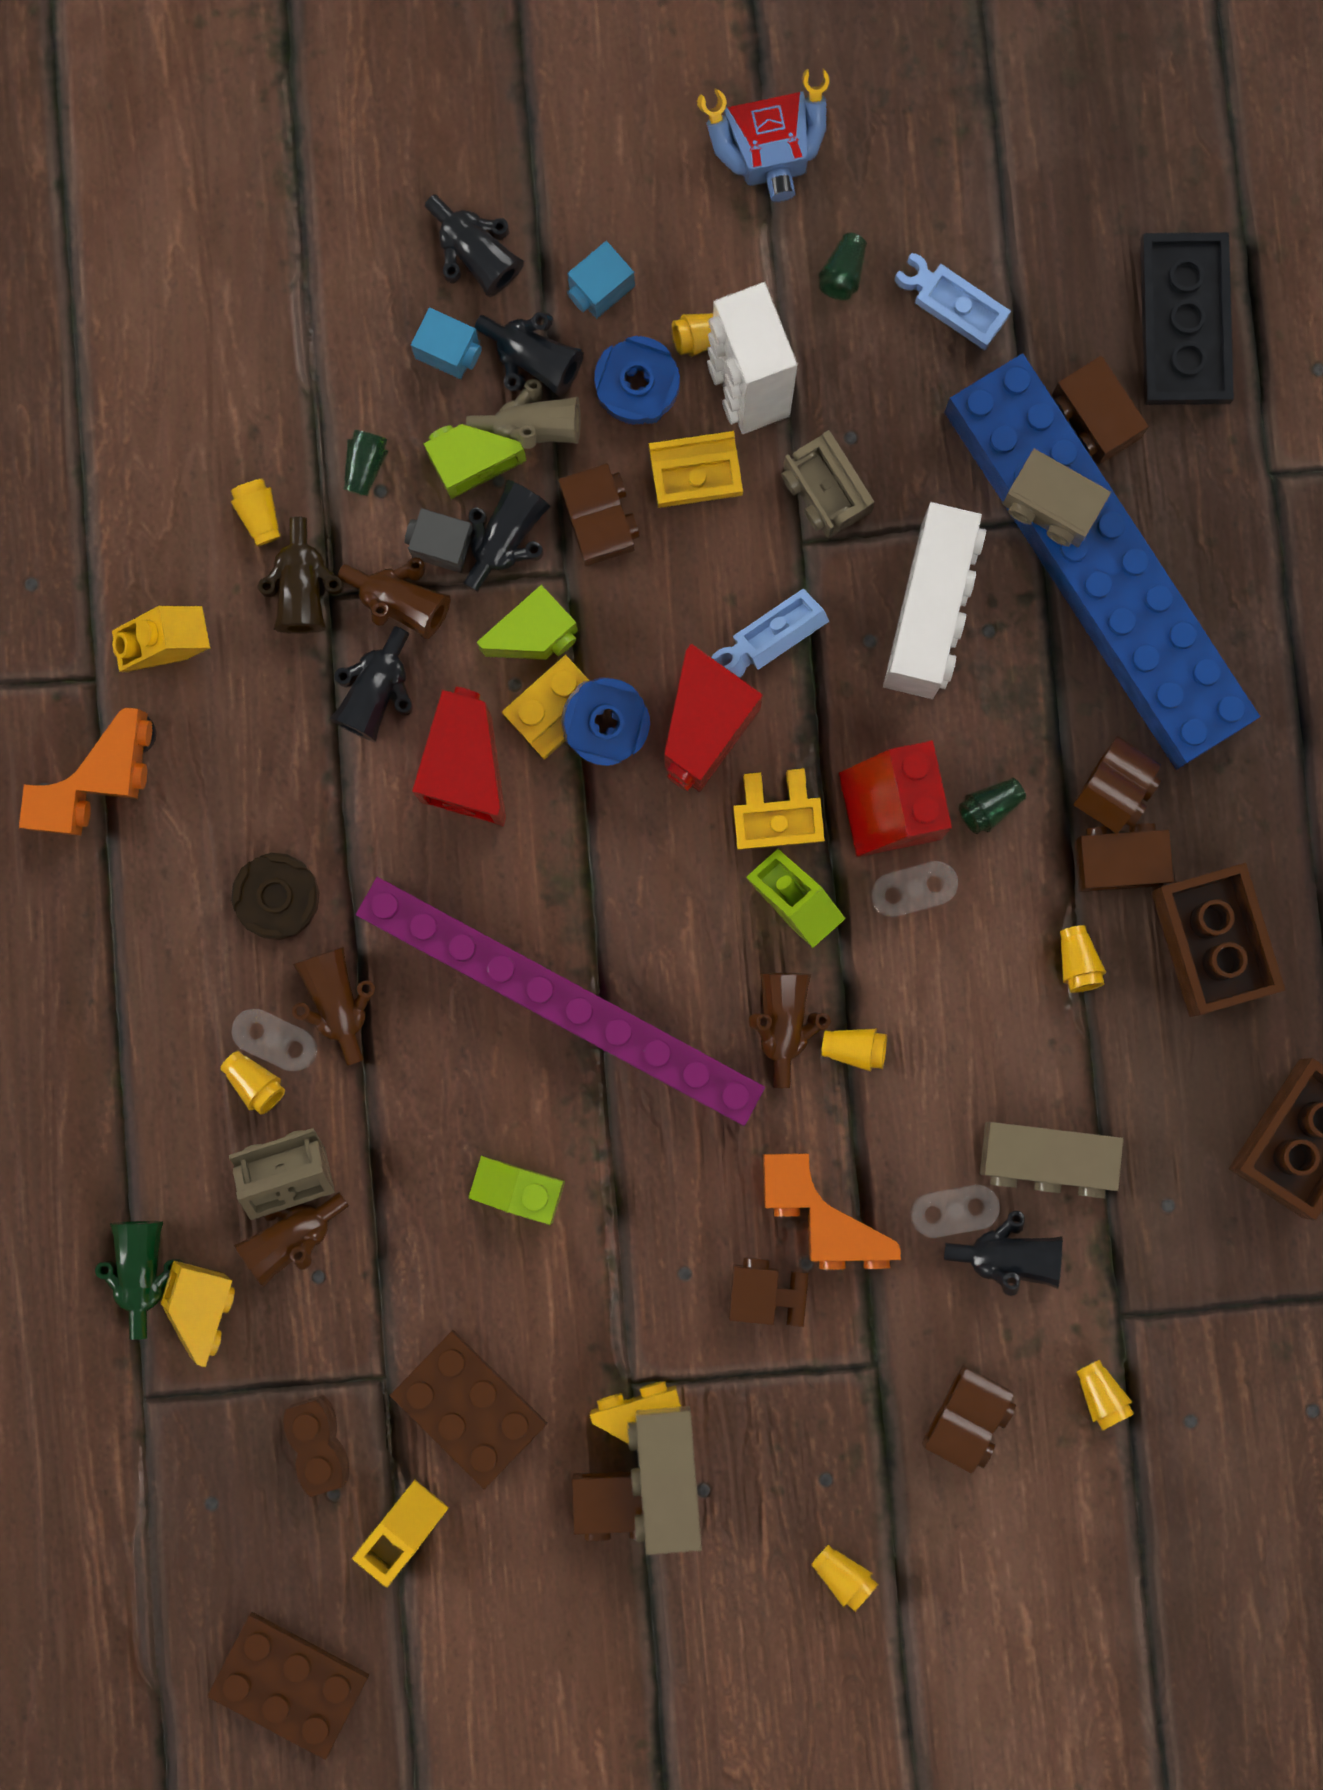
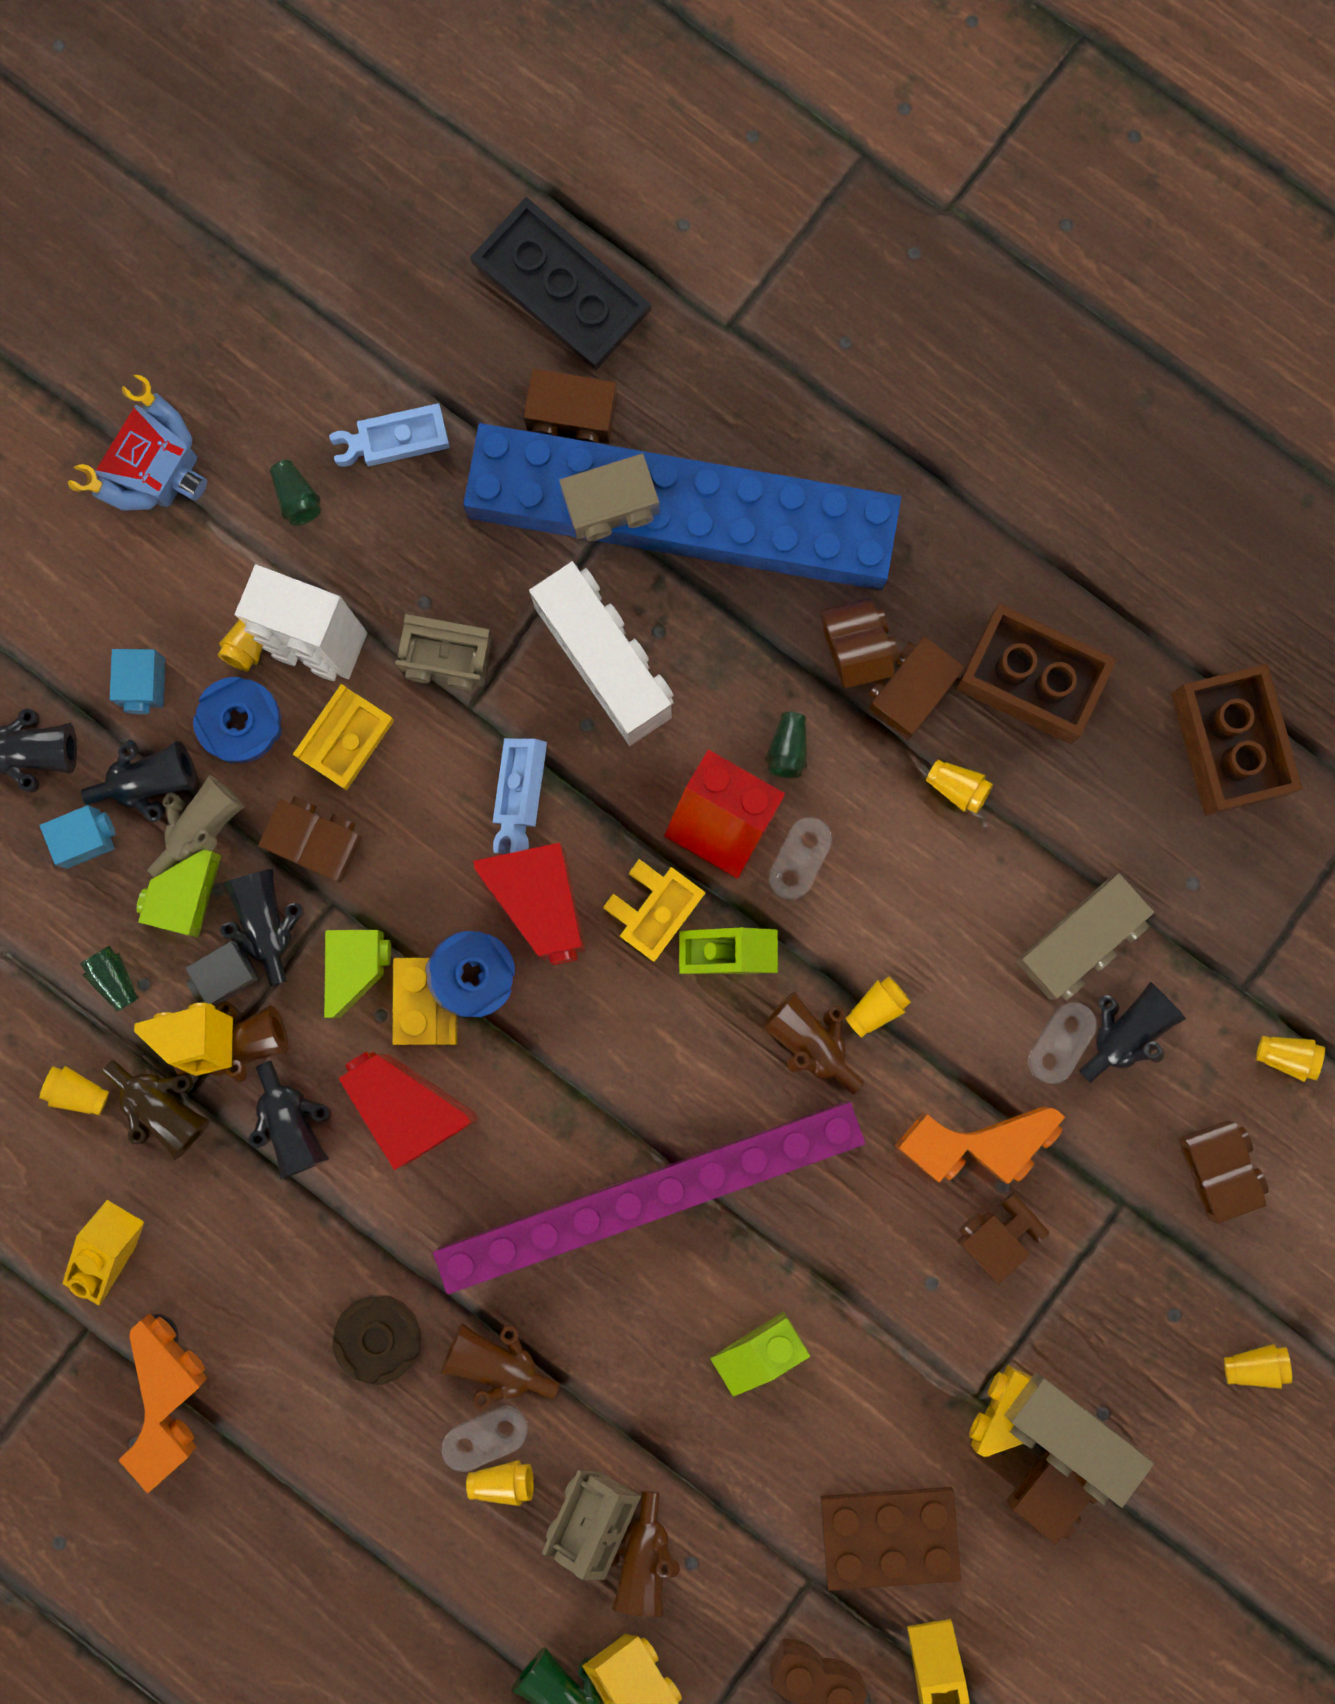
camera: 50 degrees left, 0 degrees up
(373, 559) = (191, 1039): none -> yellow slope

